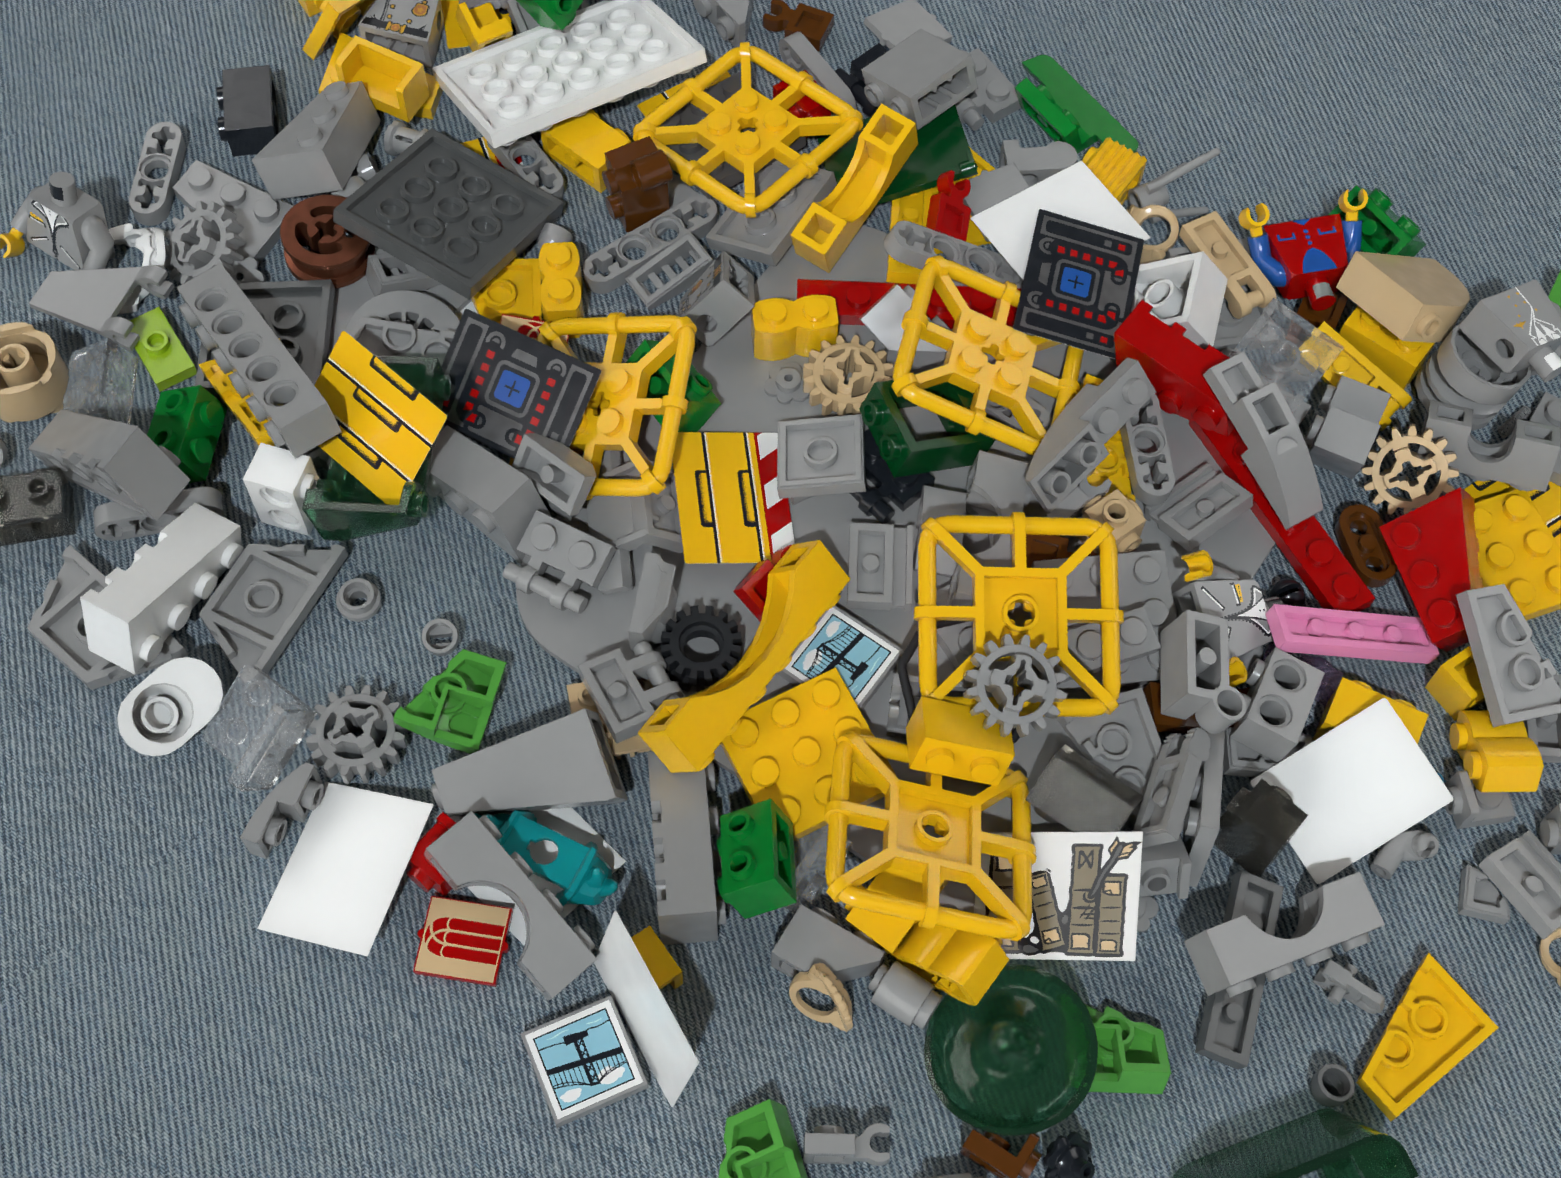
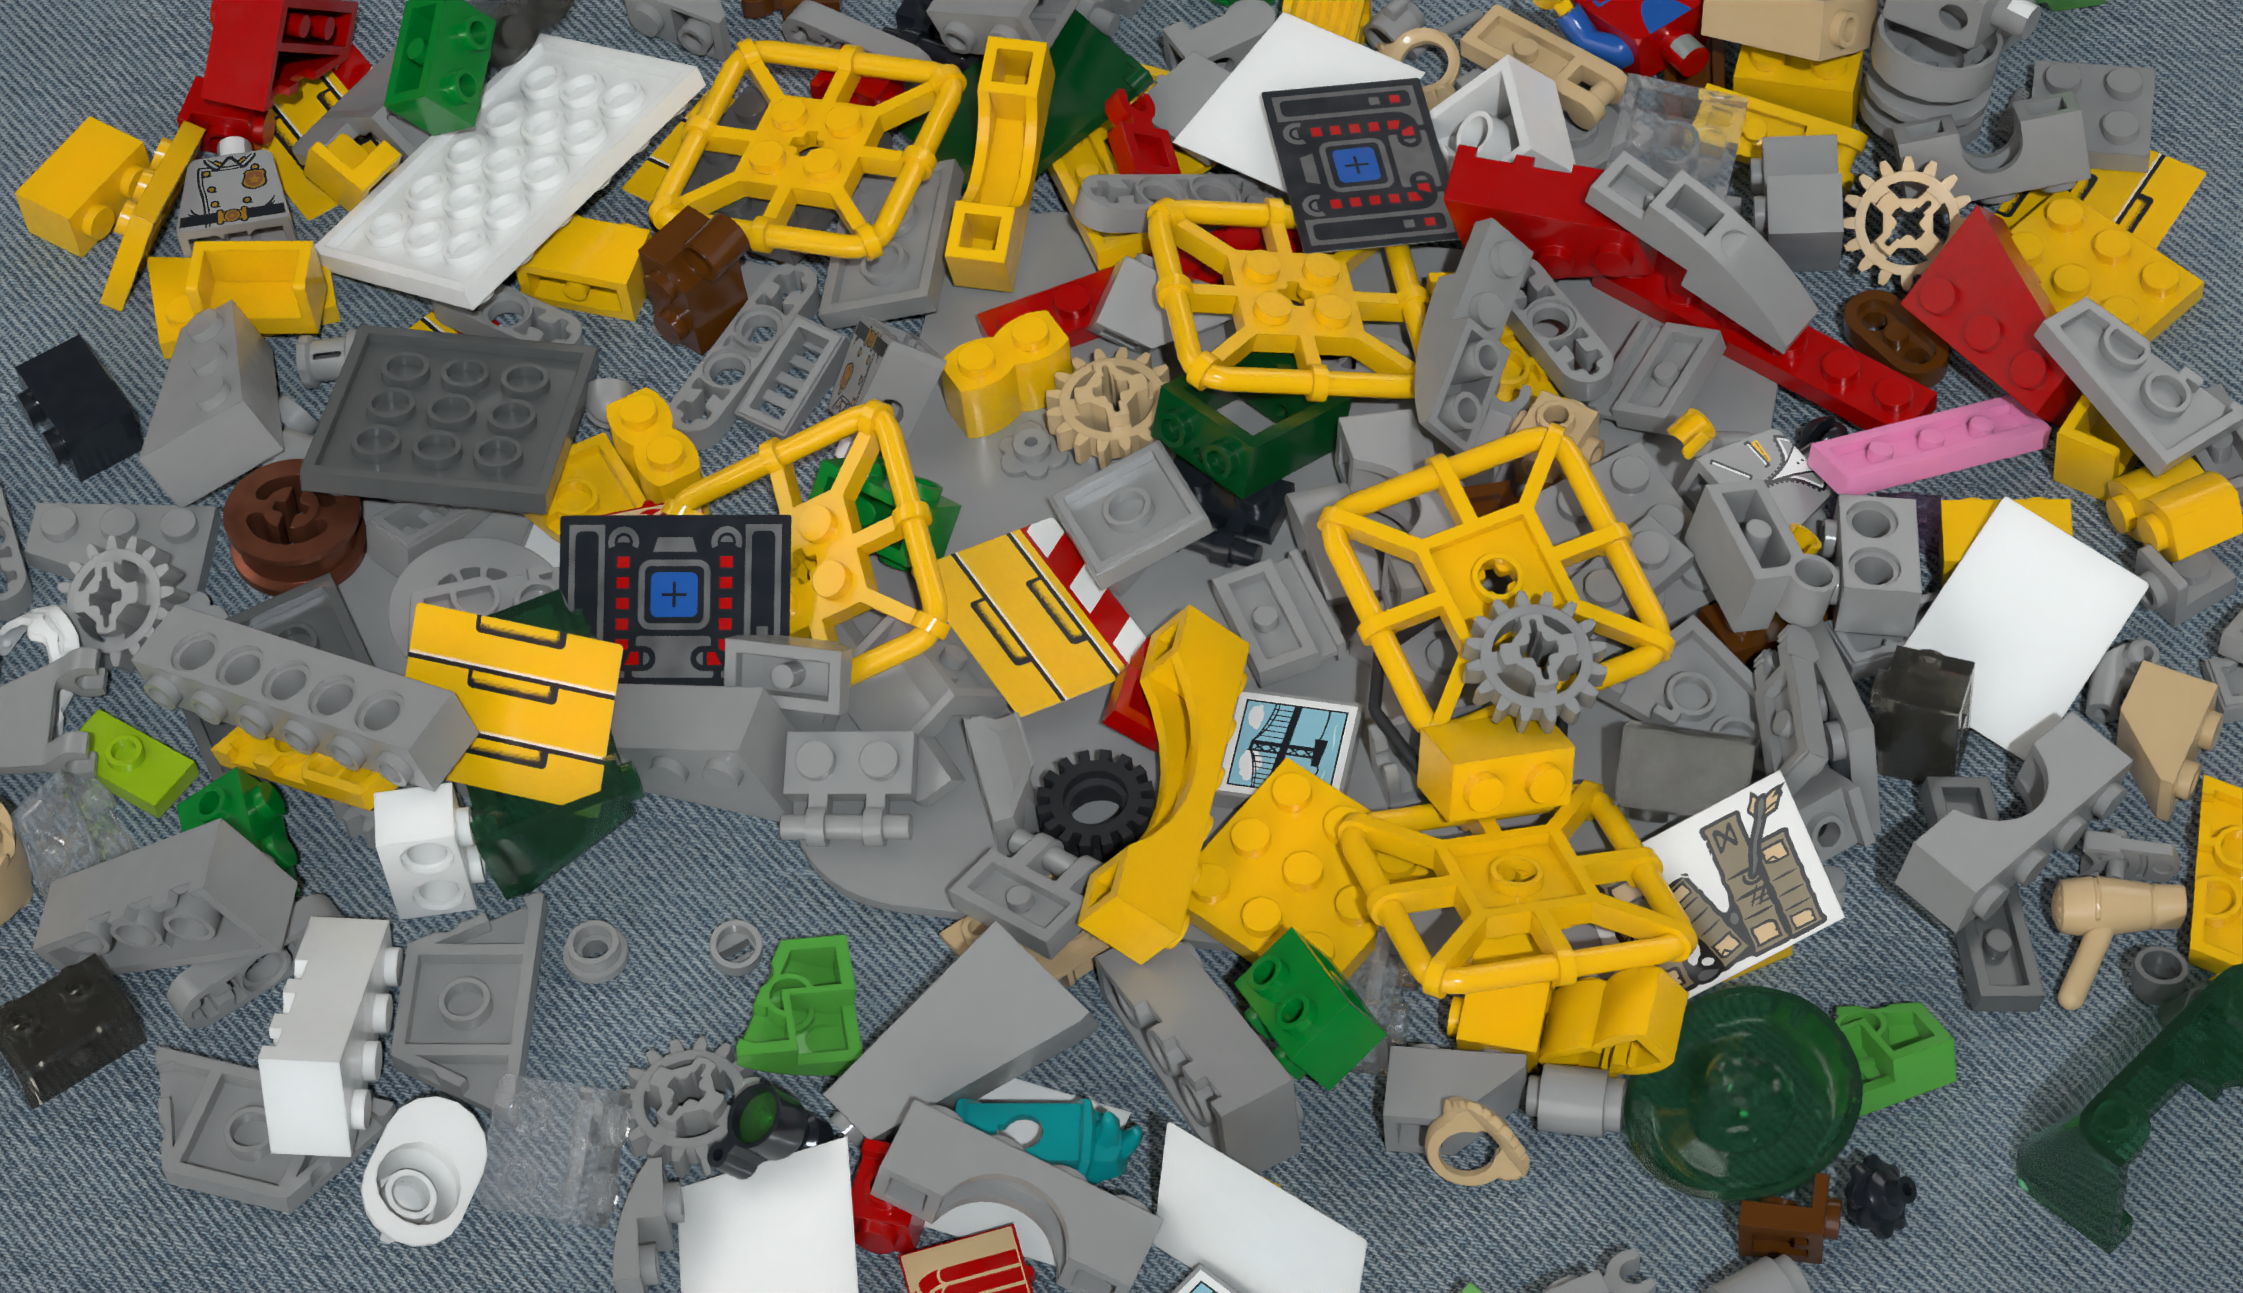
camera: 15 degrees left, 10 degrees down
(389, 776) = (763, 1127): none -> black piece
(1315, 1019) = (2105, 908): none -> tan piece
(1415, 906) = (2163, 731): none -> tan slope

